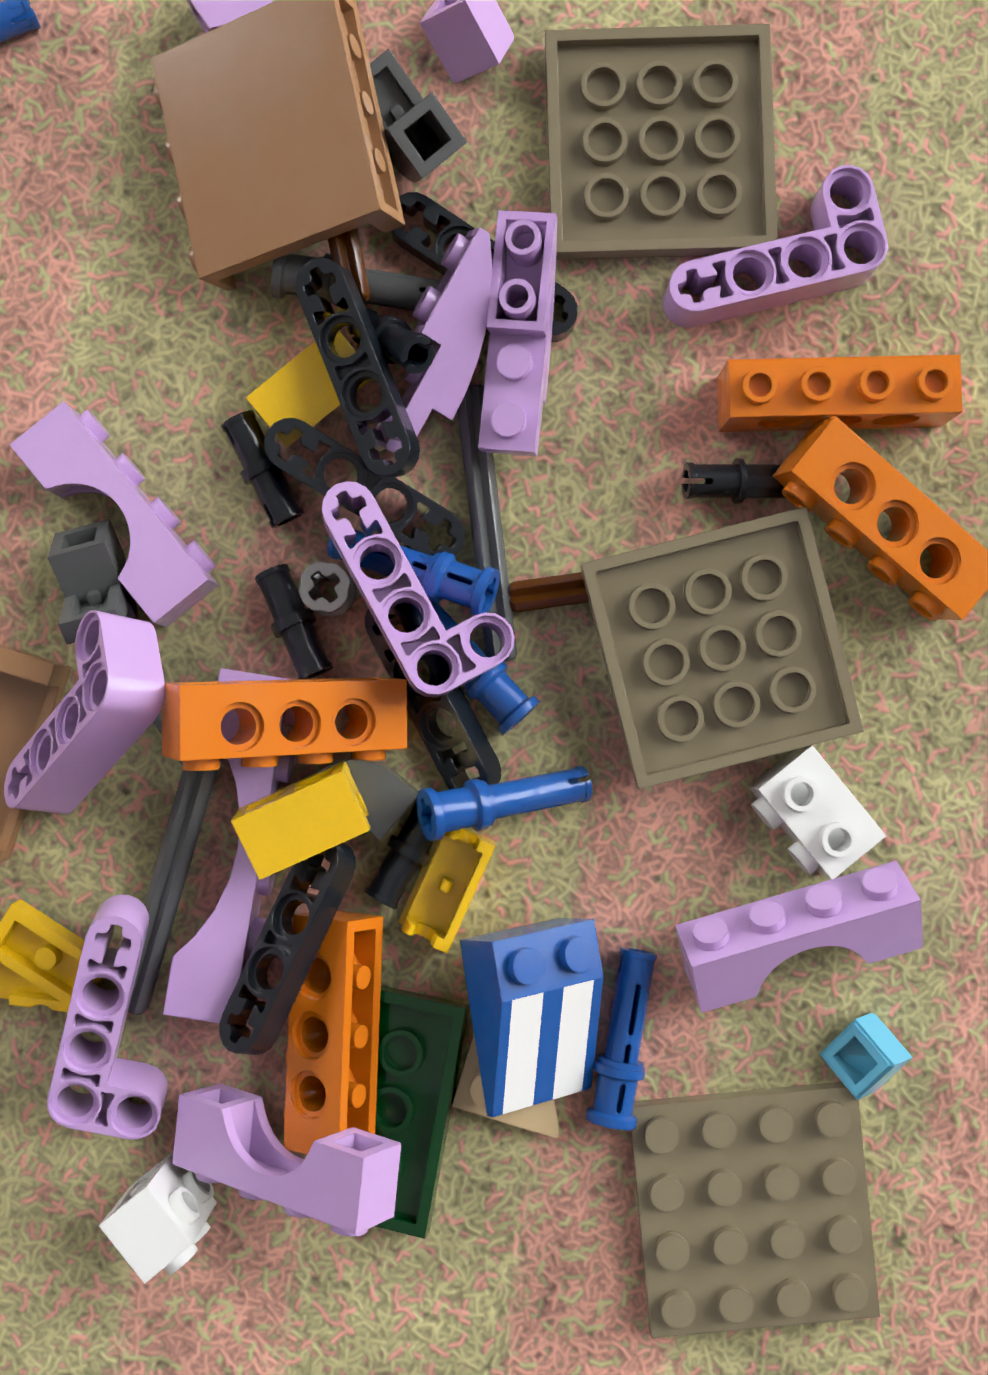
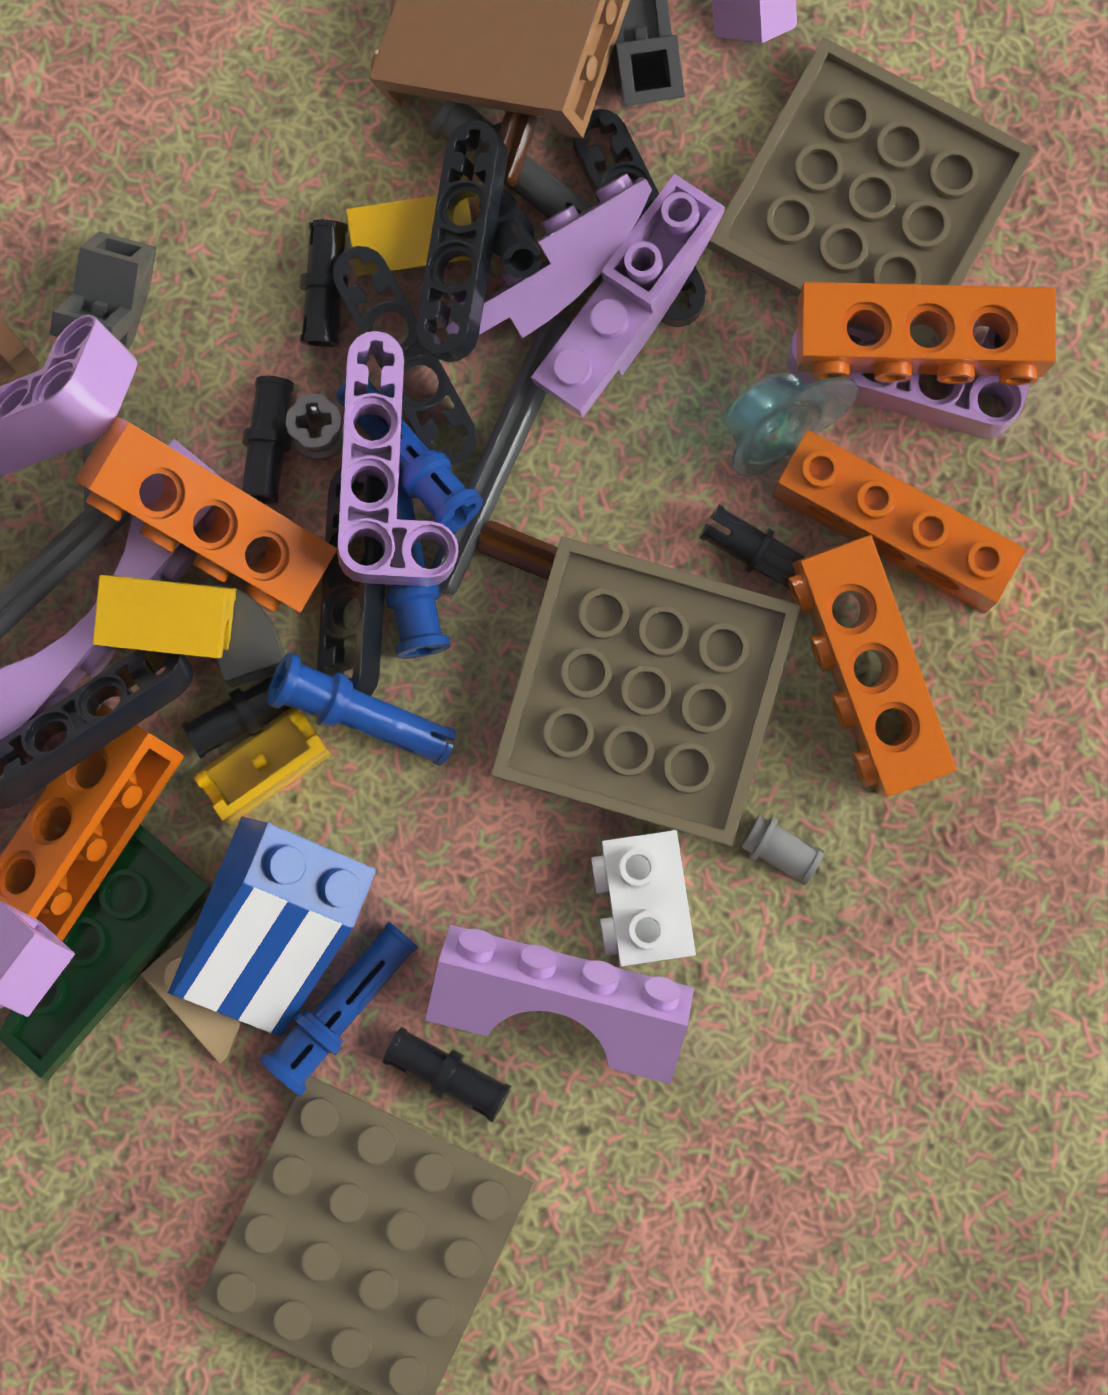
camera: 30 degrees right, 5 degrees down
(71, 459) = (174, 320): lavender arch -> none
(690, 360) = (777, 412): none -> clear light blue piece
(740, 1040) = (446, 1074): none -> black pin
(852, 166) = (1018, 314): none -> orange brick
(865, 1055) = (558, 1162): medium azure slope -> none
(896, 708) = (781, 849): none -> light grey pin

